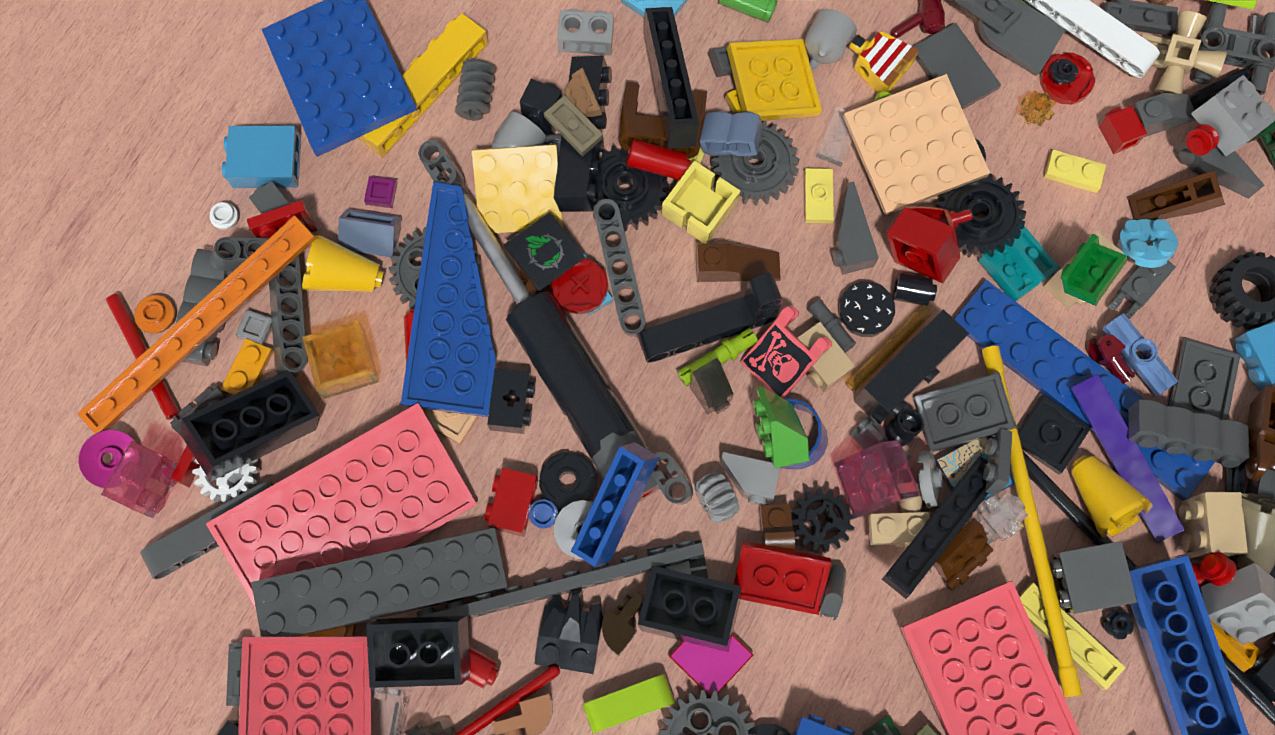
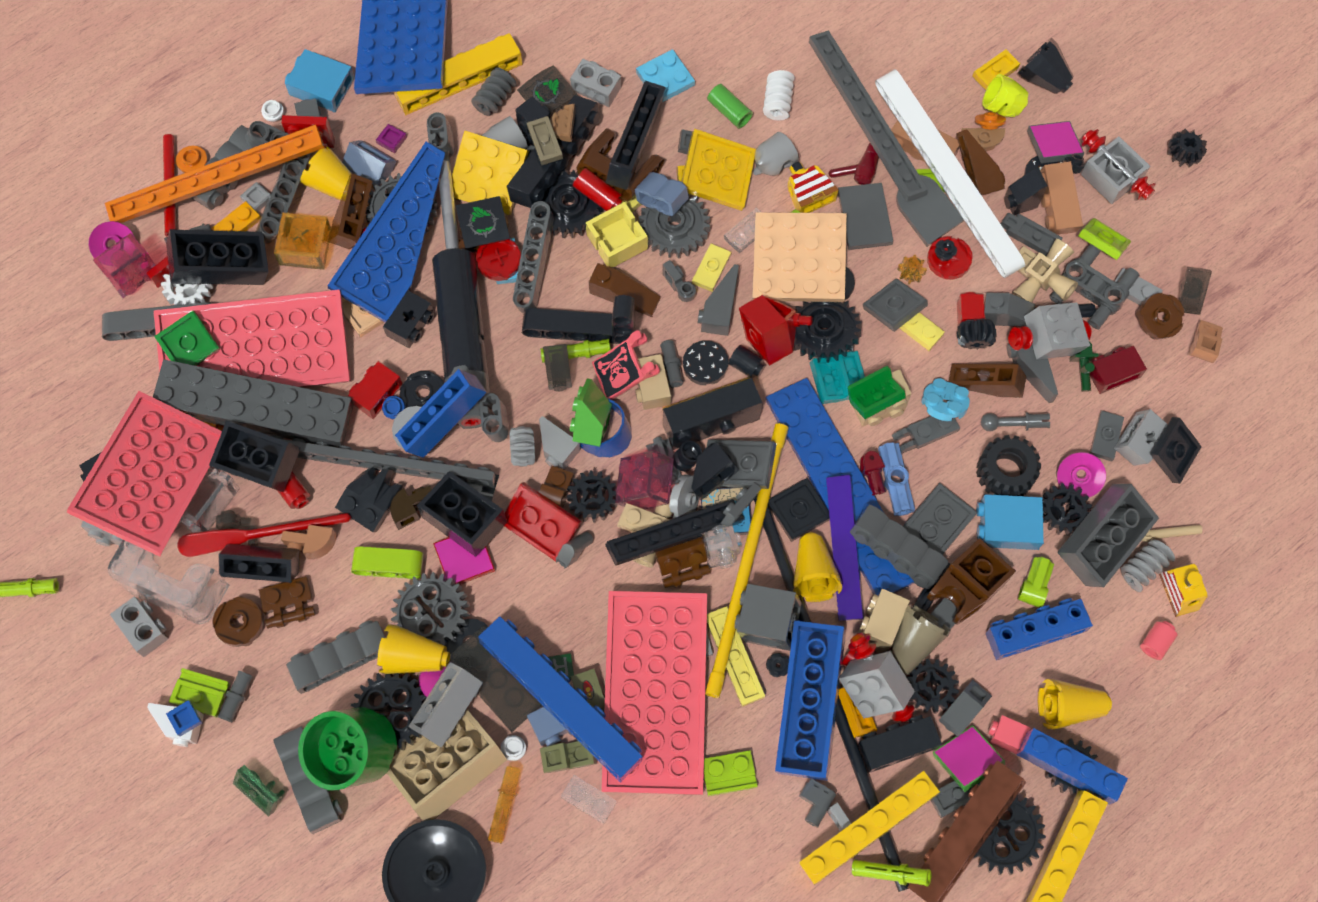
camera: 25 degrees right, 5 degrees down
(264, 543) = (187, 340): none -> green tile
(382, 303) = (350, 212): none -> reddish brown slope
(535, 60) = (549, 89): none -> clear smoke slope
(787, 225) = (674, 275): none -> dark grey plate
(944, 431) = (712, 470): none -> black slope
(1040, 156) = (895, 304): none -> dark grey tile
(1144, 153) = (976, 334): none -> black gear
(1201, 245) = (991, 422): none -> dark grey pin

